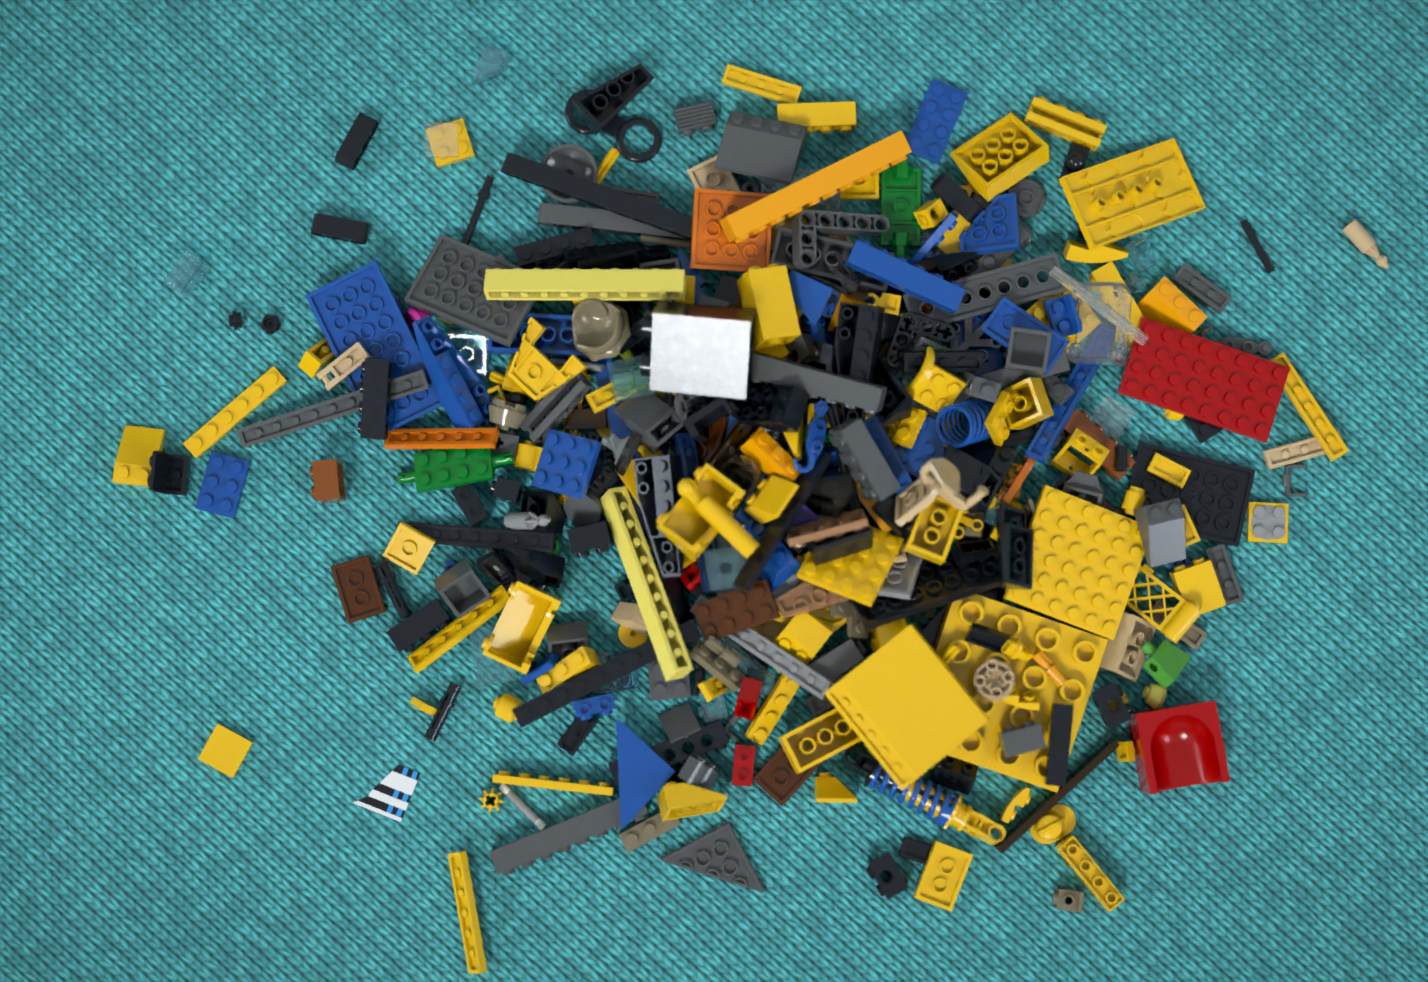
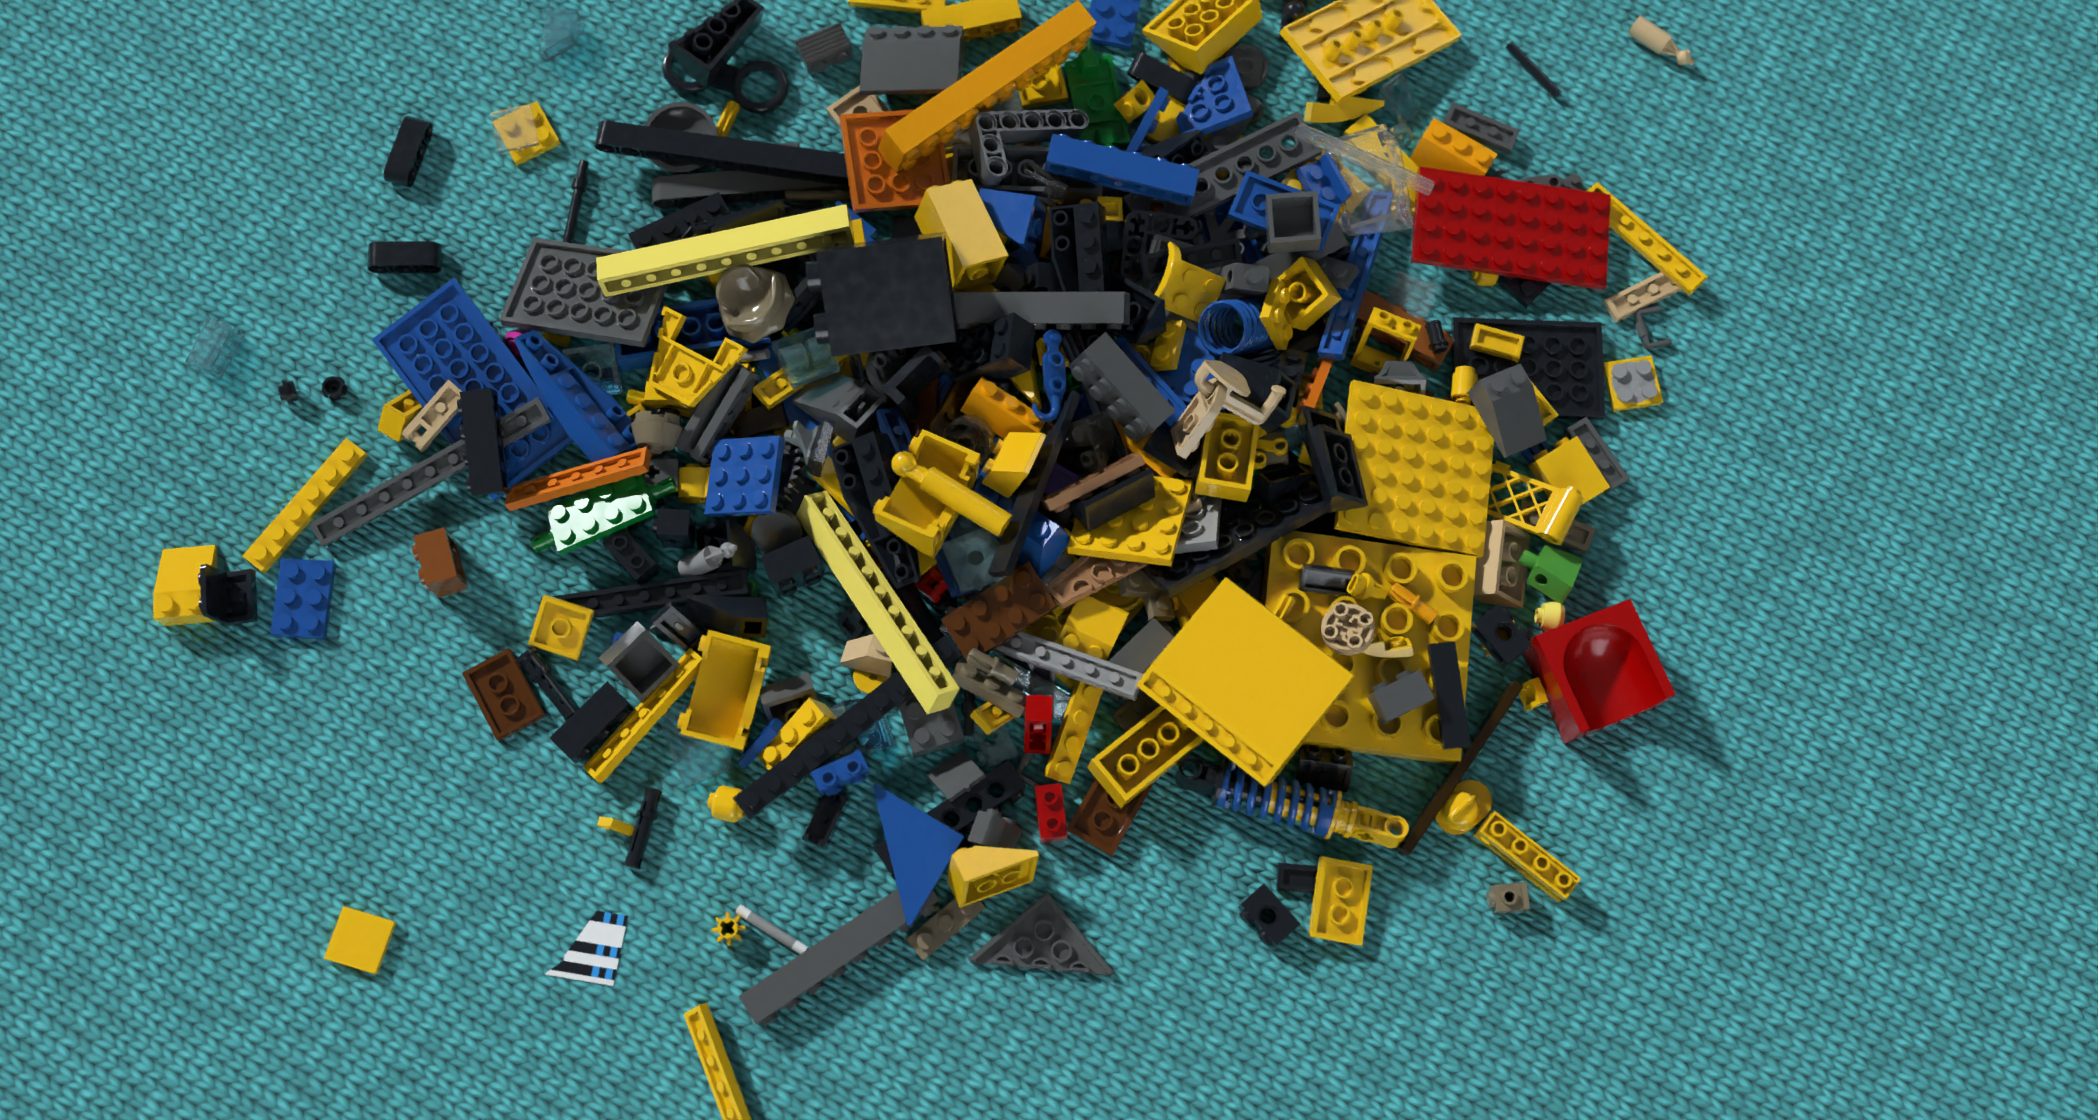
camera: 15 degrees left, 10 degrees down
(544, 781) = (794, 890): yellow plate -> none
(831, 790) = (1173, 820): yellow slope -> none
(1020, 799) = (1413, 784): yellow slope -> none

